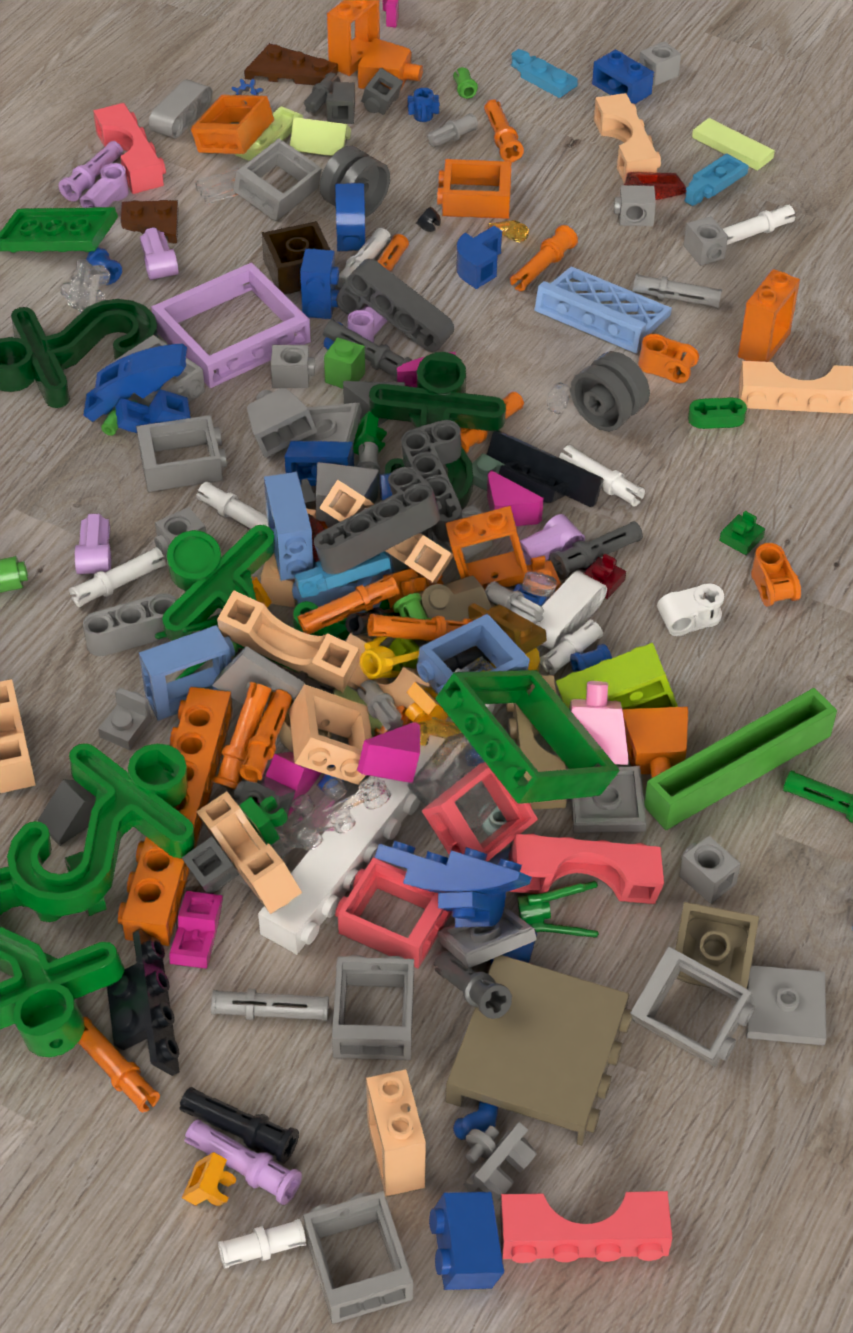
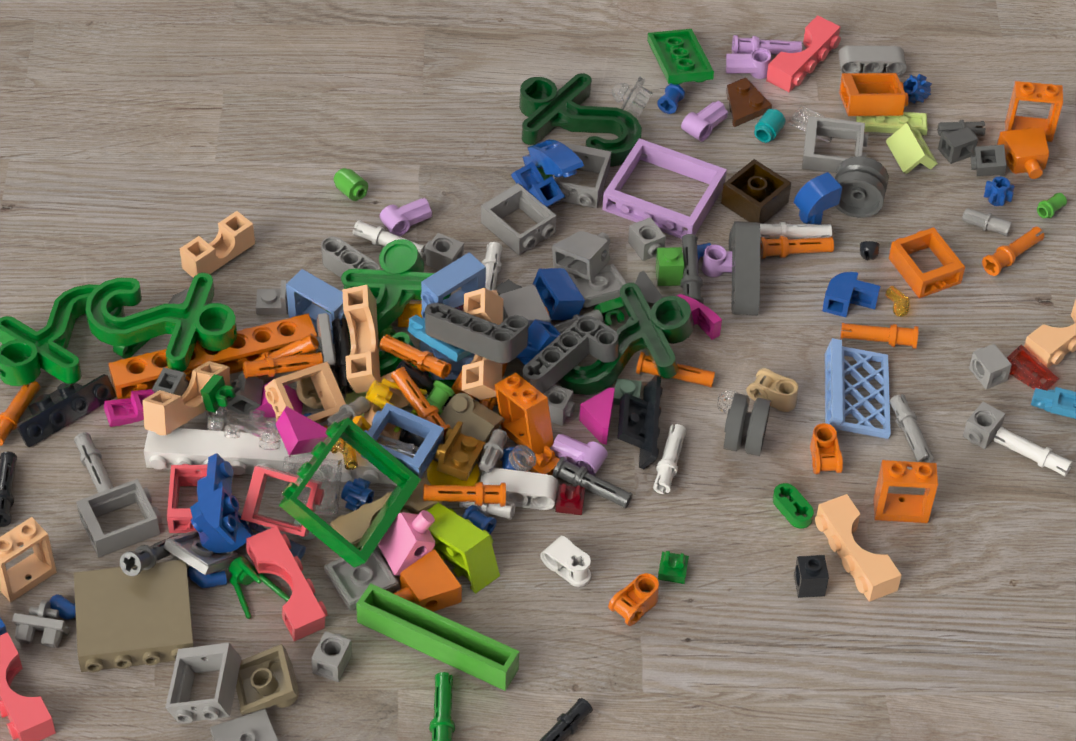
camera: 60 degrees right, 0 degrees up
(206, 213) = (769, 125): none -> teal brick
(281, 62) = (981, 97): reddish brown wing -> none
(319, 283) = (730, 207): blue brick -> none
(565, 359) = (777, 388): none -> tan piece
(571, 637) = (479, 493): none -> orange pin
(821, 433) = (811, 576): none -> black brick

